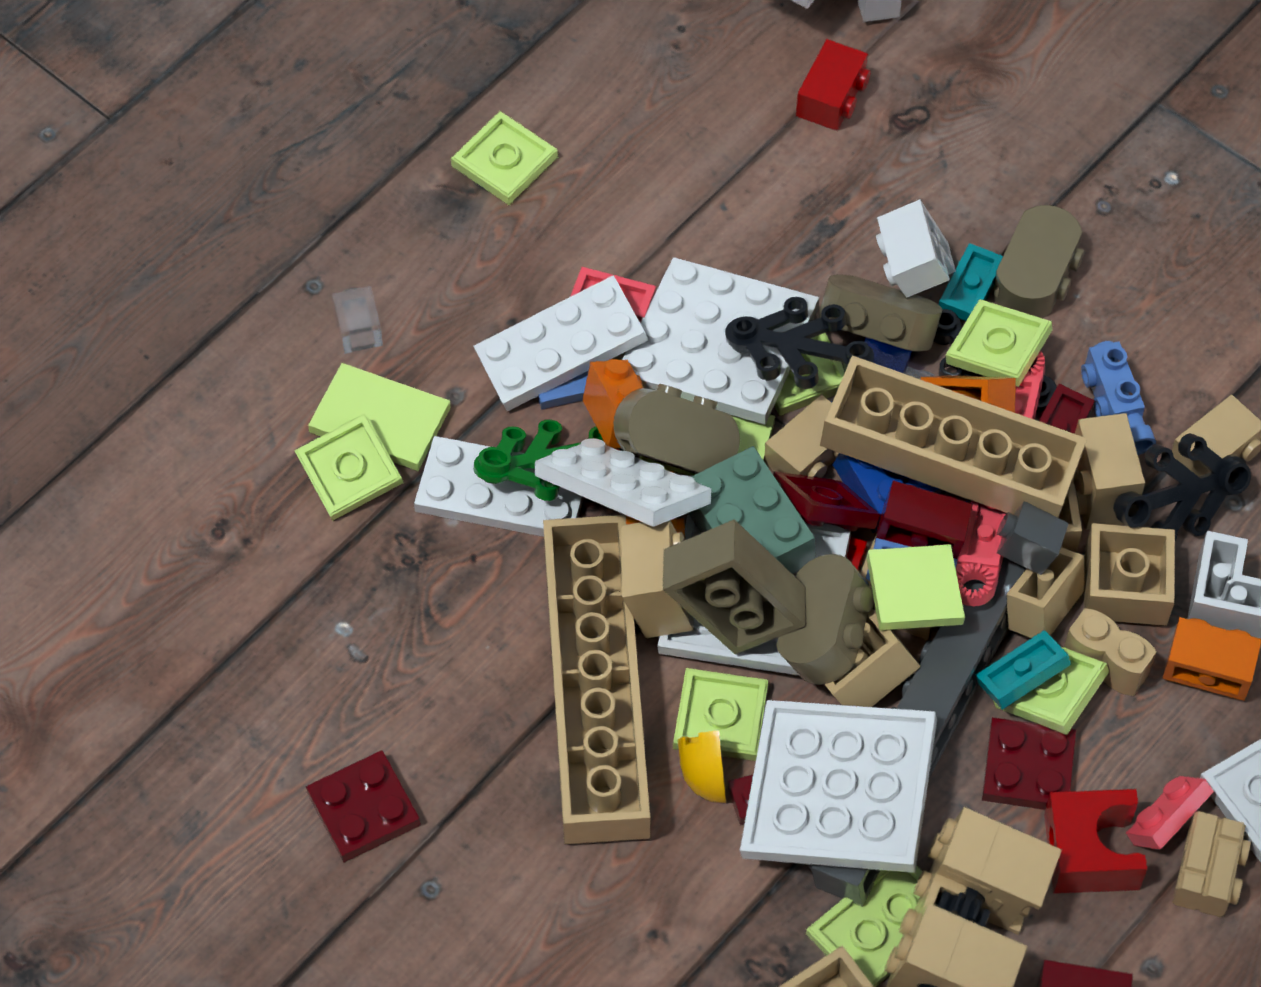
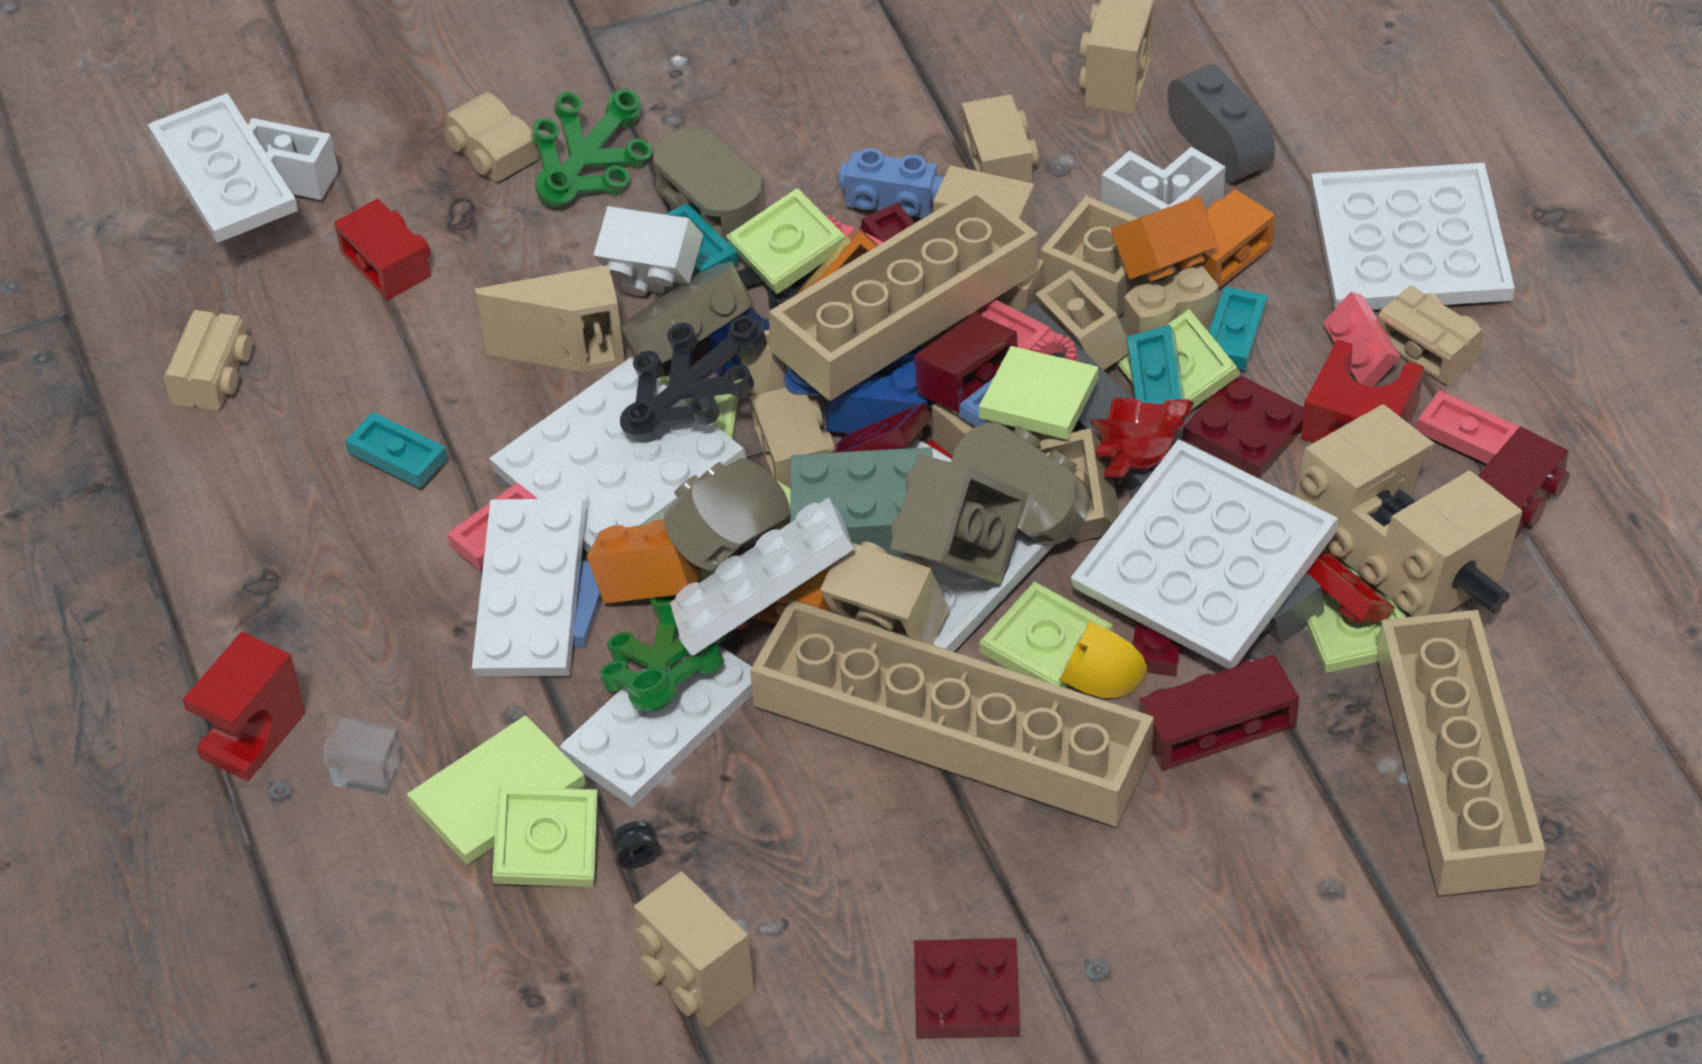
camera: 60 degrees left, 10 degrees down
(283, 605) = (693, 949): none -> tan brick
(348, 222) = (250, 700): none -> red piece
(371, 527) = (635, 844): none -> black bush
(504, 157) = (250, 554): yellowish green tile -> none
(646, 195) = (396, 449): none -> teal plate
(657, 35) = (207, 360): none -> tan brick
(707, 867) = (1220, 711): none -> dark red brick
(822, 231) = (554, 320): none -> tan slope
(880, 910) = (1357, 598): none -> red plate
(926, 678) = (1139, 433): none -> red helmet
(991, 94) = (490, 137): none -> tan brick
(1017, 163) = (587, 151): none -> green plant
(1031, 537) = (1041, 285): dark grey brick -> none
(1123, 934) = (1464, 427): none -> coral plate
(1127, 710) = (1238, 323): none -> teal plate
(1146, 607) = (1165, 238): none -> orange brick
(1227, 477) = (1056, 190): black plant -> none

